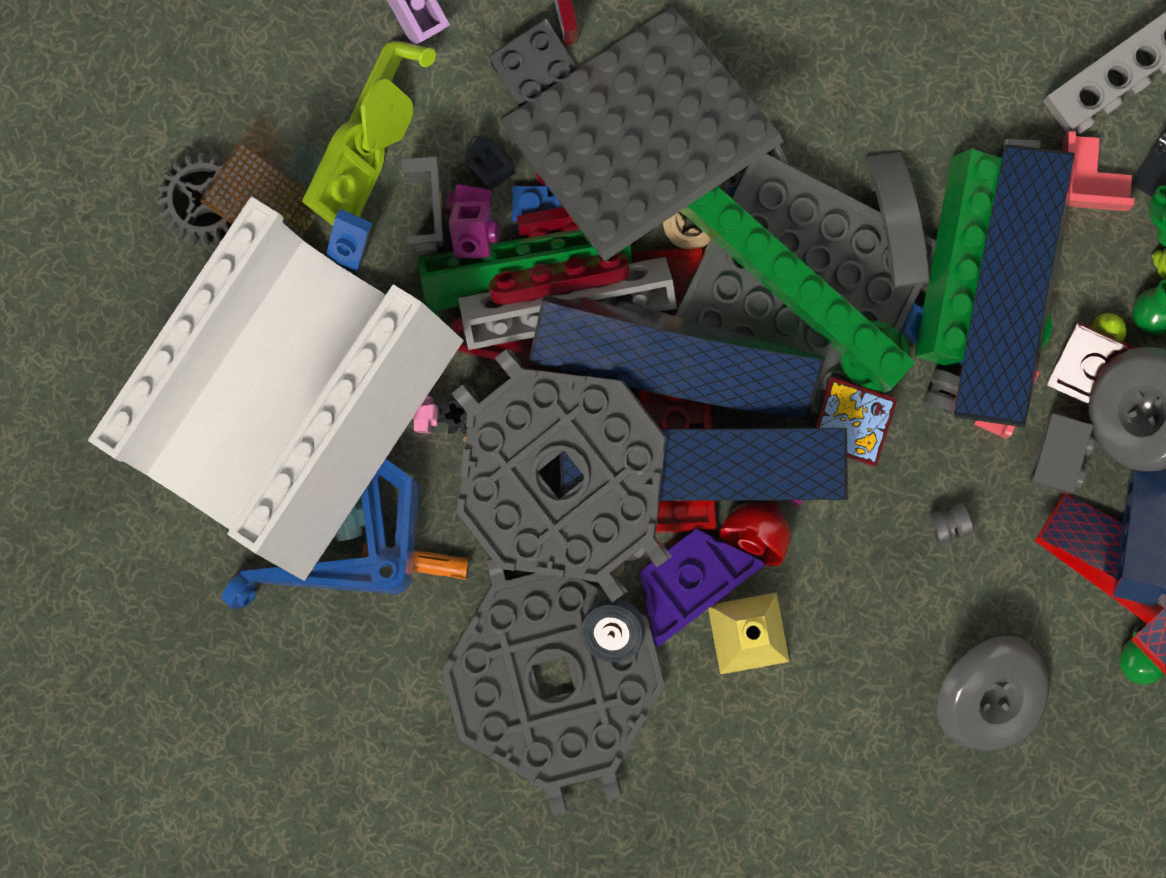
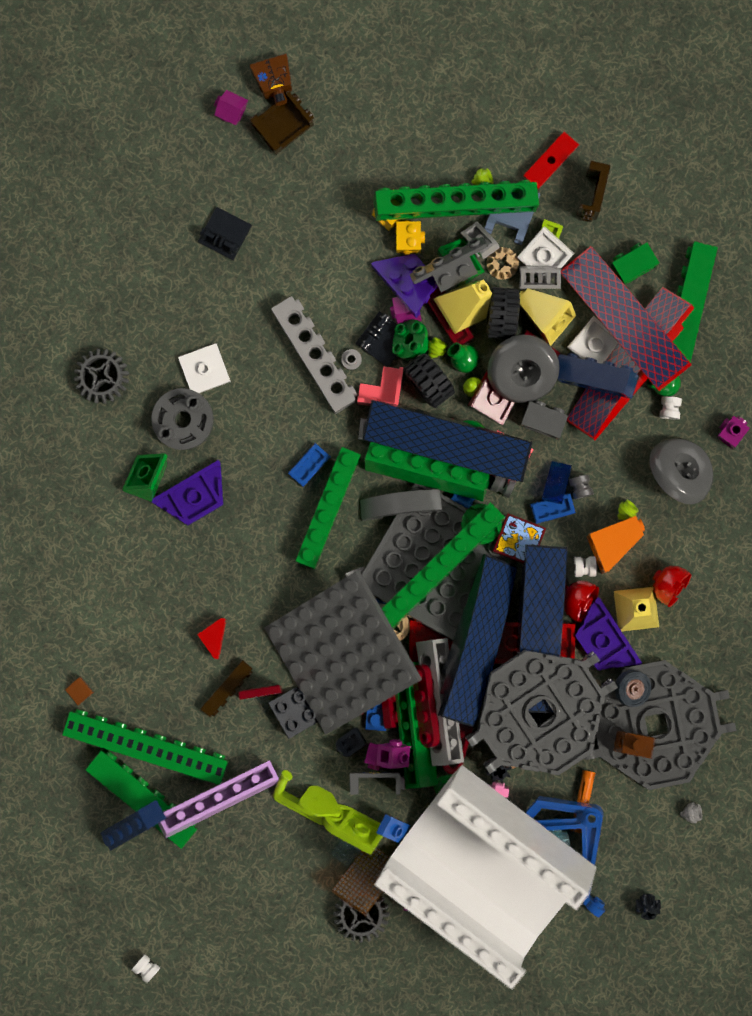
camera: 85 degrees left, 0 degrees up
(244, 681) = (648, 906): none -> black gear
(407, 749) = (692, 813): none -> light grey plate
(516, 641) = (634, 744): none -> reddish brown torso
(796, 686) = (670, 583): none -> red cylinder
(815, 547) = (585, 566): none -> white wheel
(862, 586) = (614, 542): none -> orange slope
(882, 97) = (328, 508): none -> green brick
(910, 479) = (547, 511): none -> blue plate
(916, 606) = (627, 510): none -> lime plate
(953, 62) = (309, 465): none -> blue plate
(955, 482) = (556, 482): none -> clear blue plate
(1068, 781) = (733, 431): none -> magenta brick
(1100, 670) = (670, 408): none -> white wheel
(1115, 250) = (429, 380): none -> black tyre
(1132, 128) = (351, 366): none -> light grey plate

